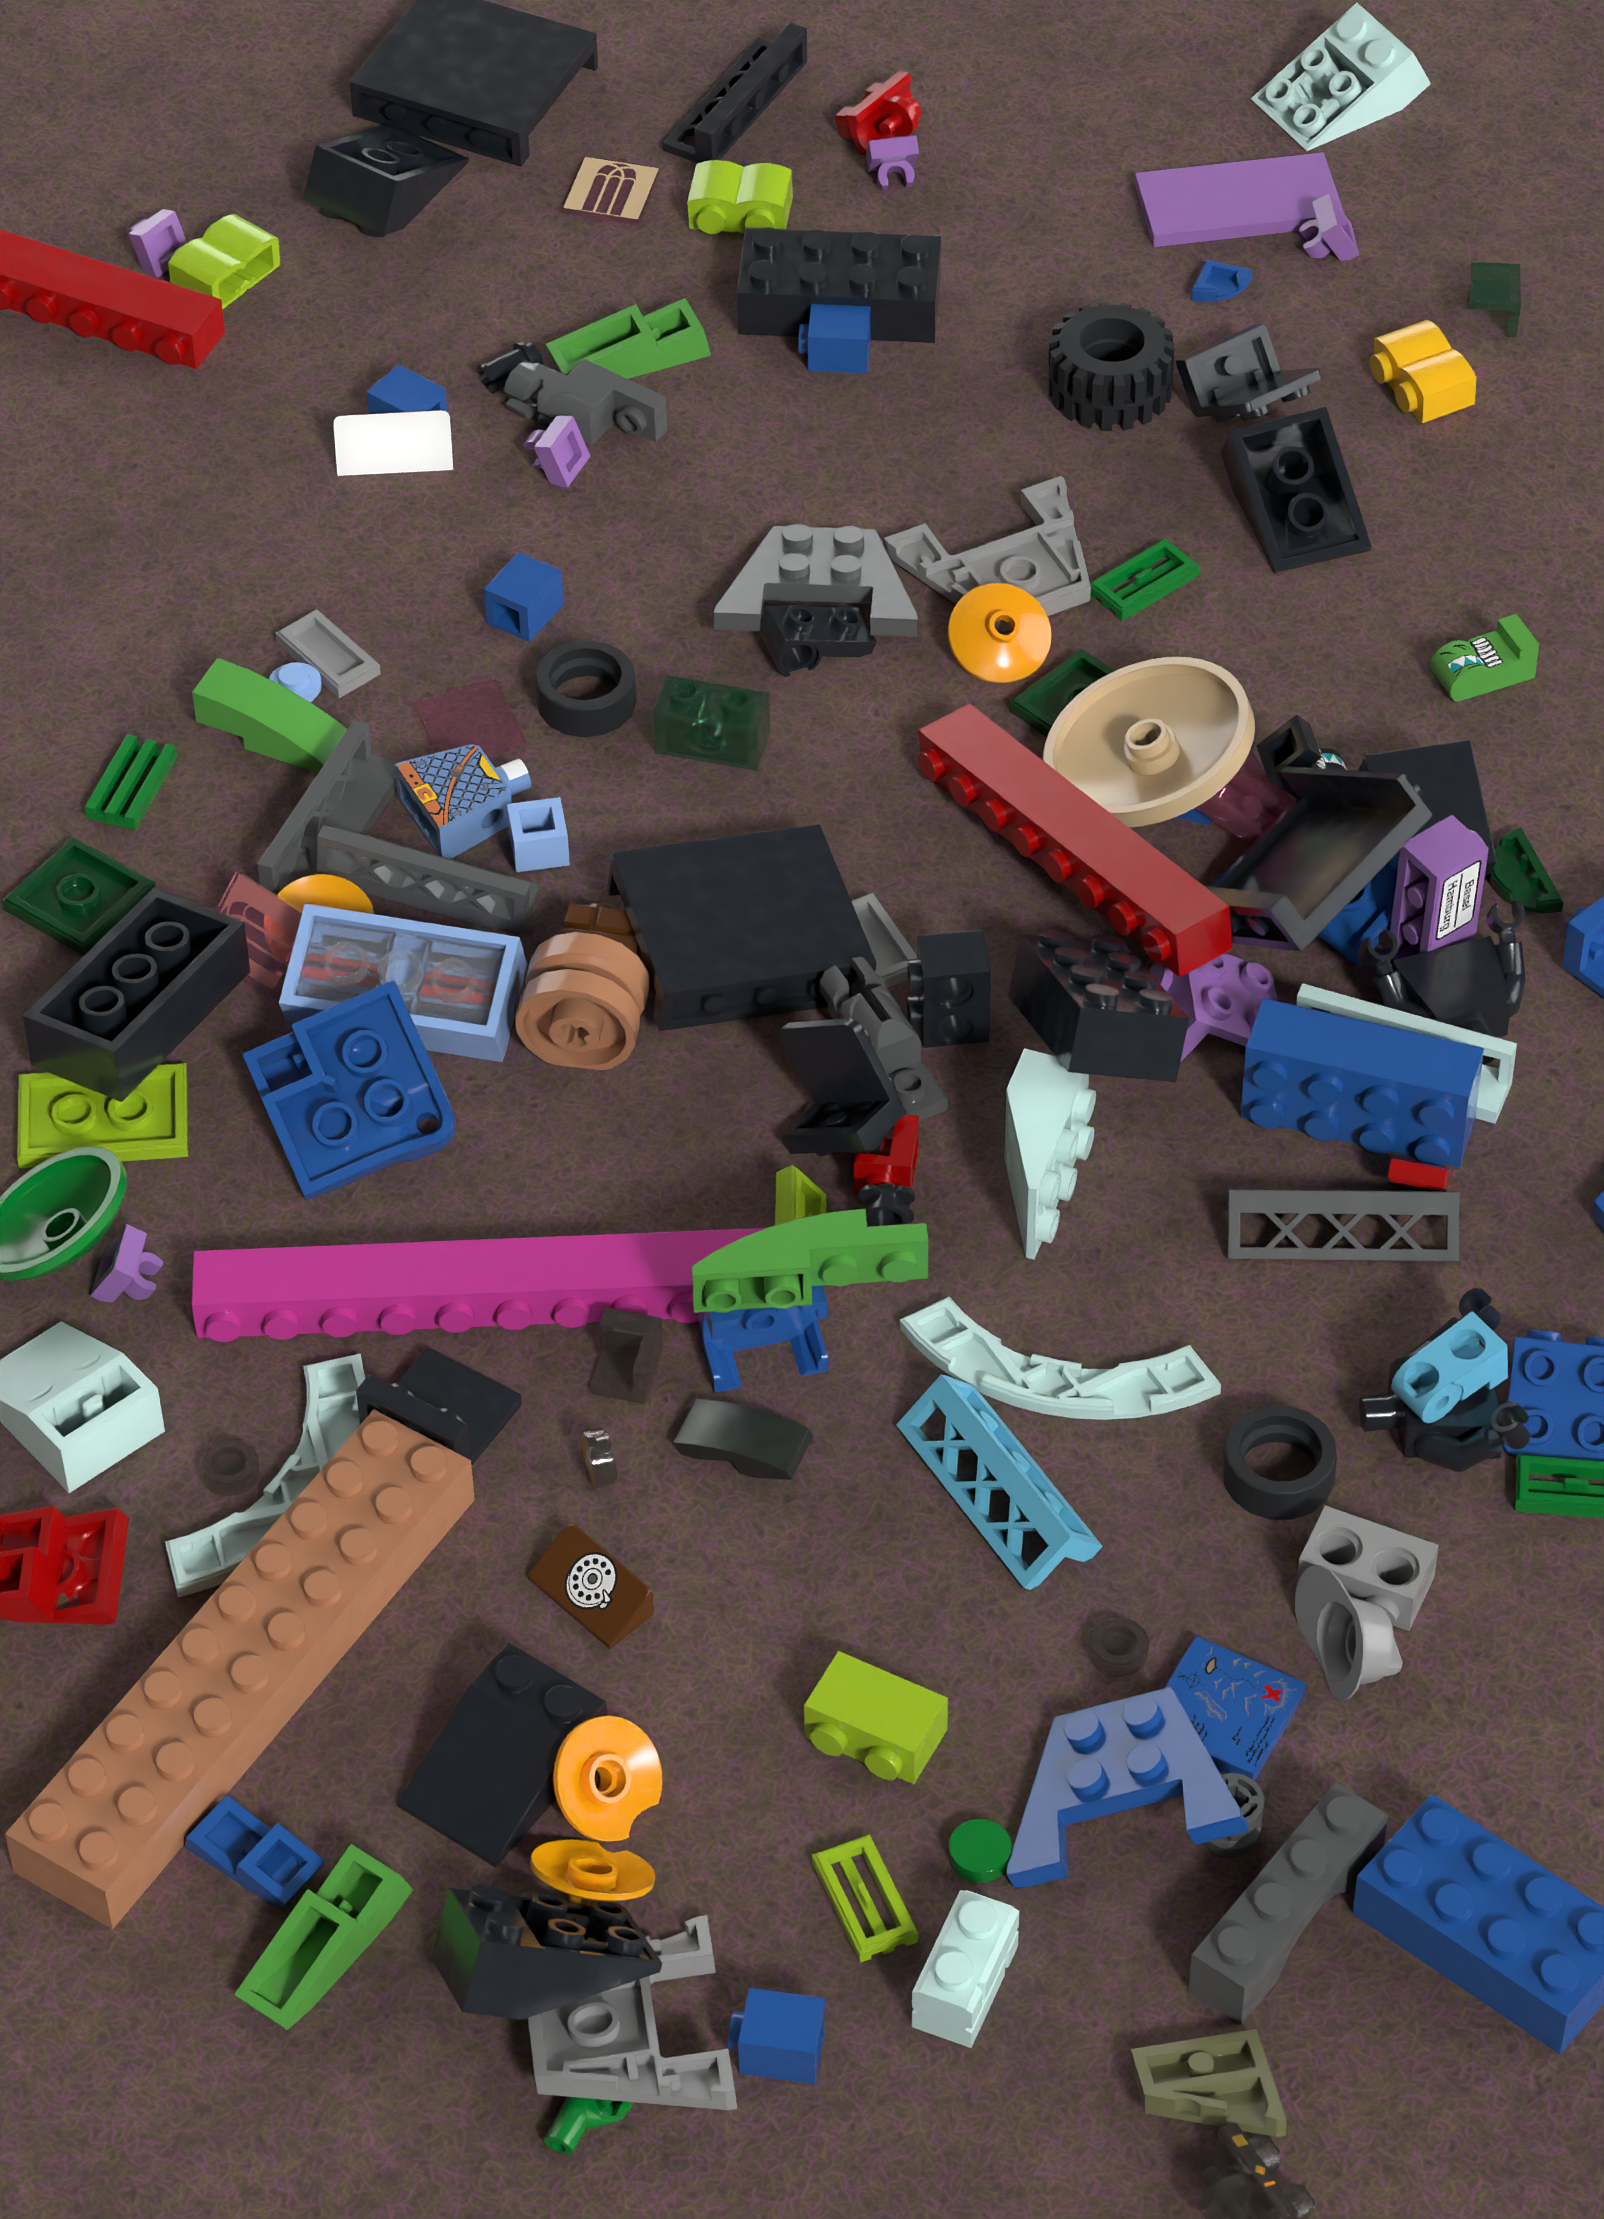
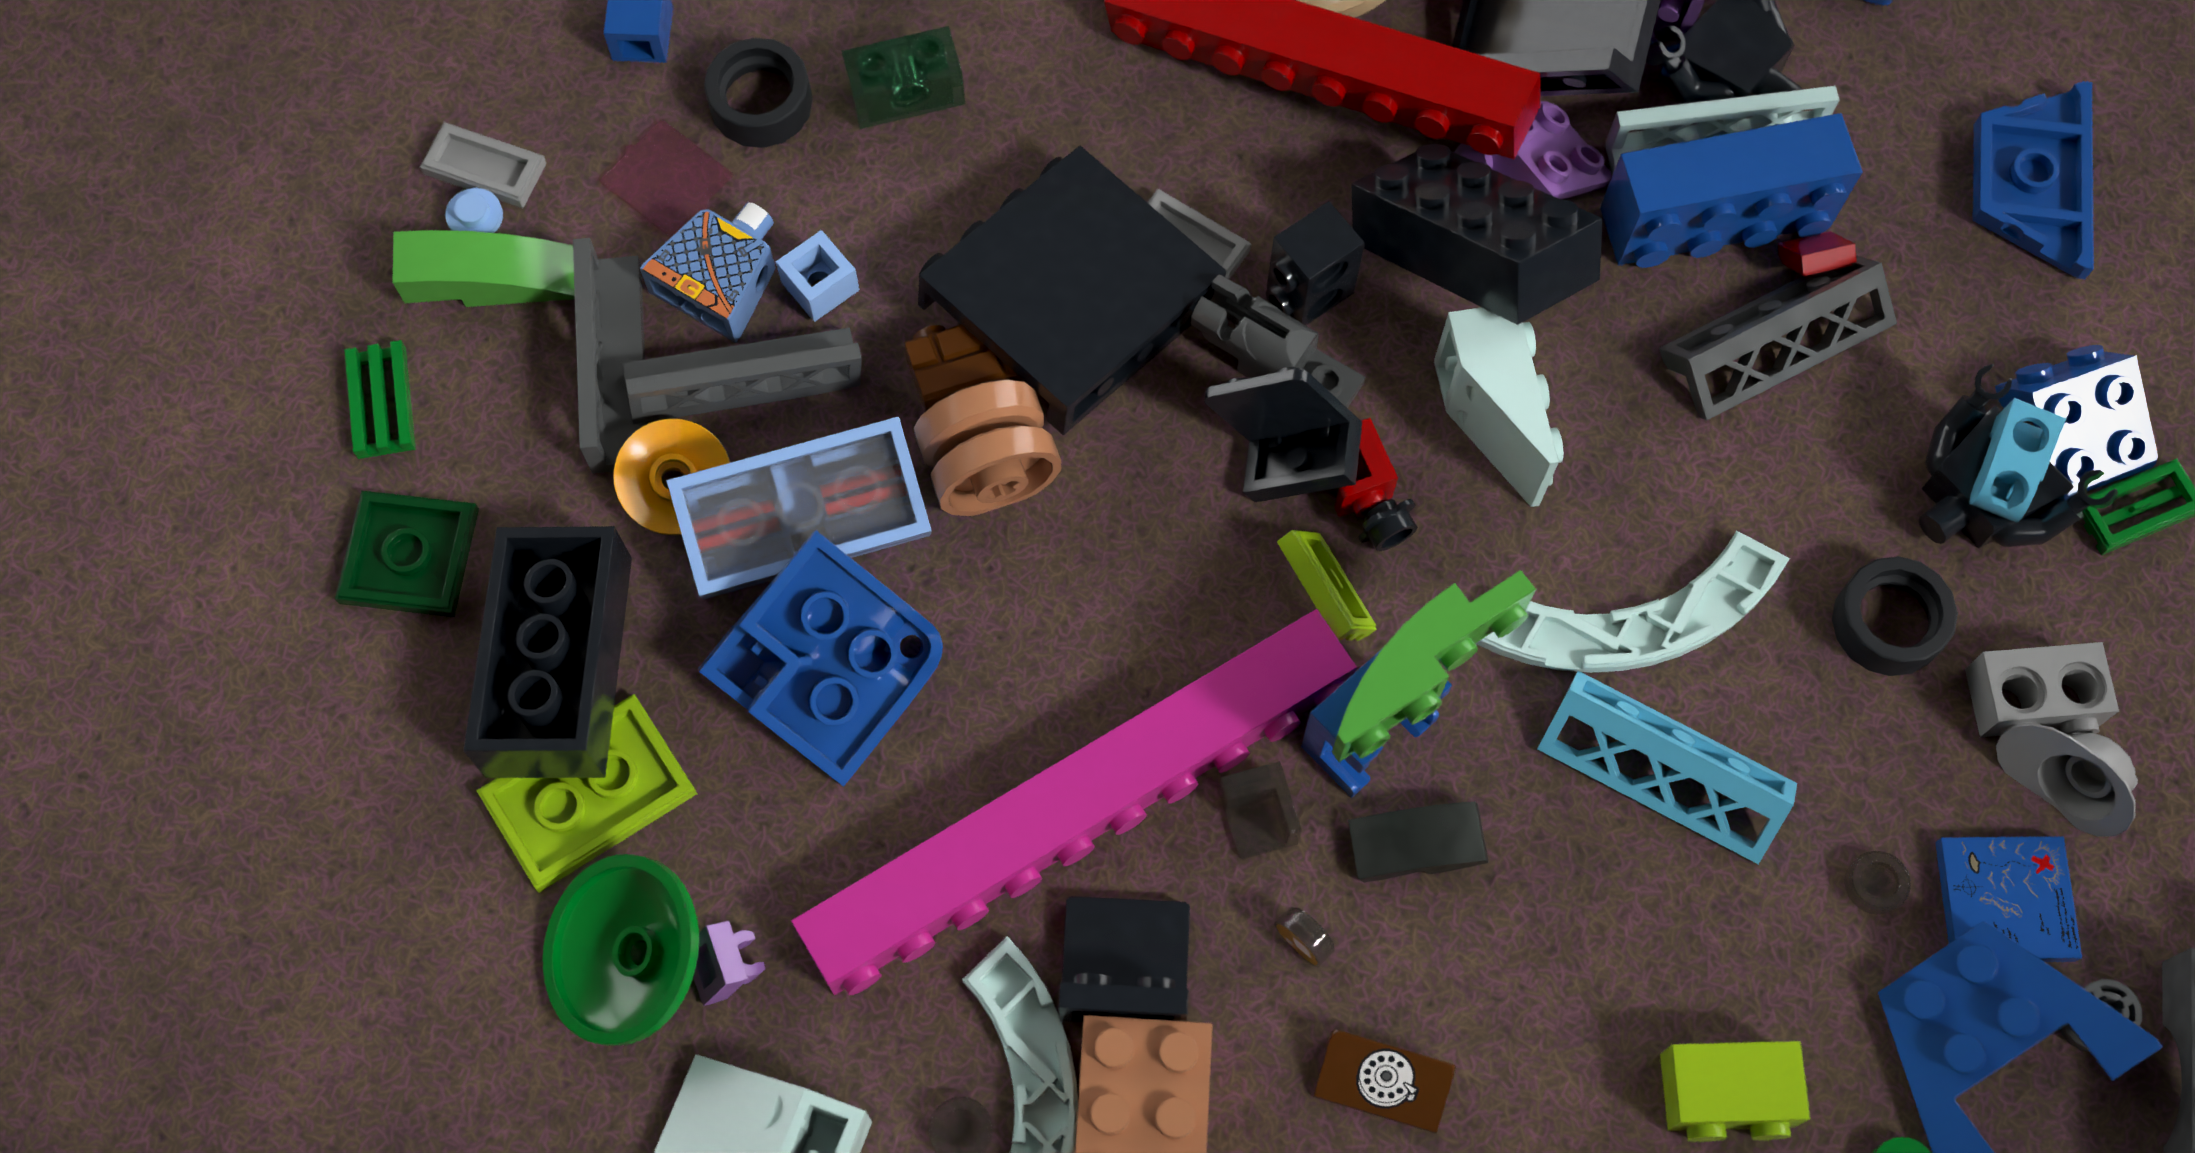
camera: 30 degrees left, 20 degrees up
(269, 929) = (620, 500): clear pink piece -> none

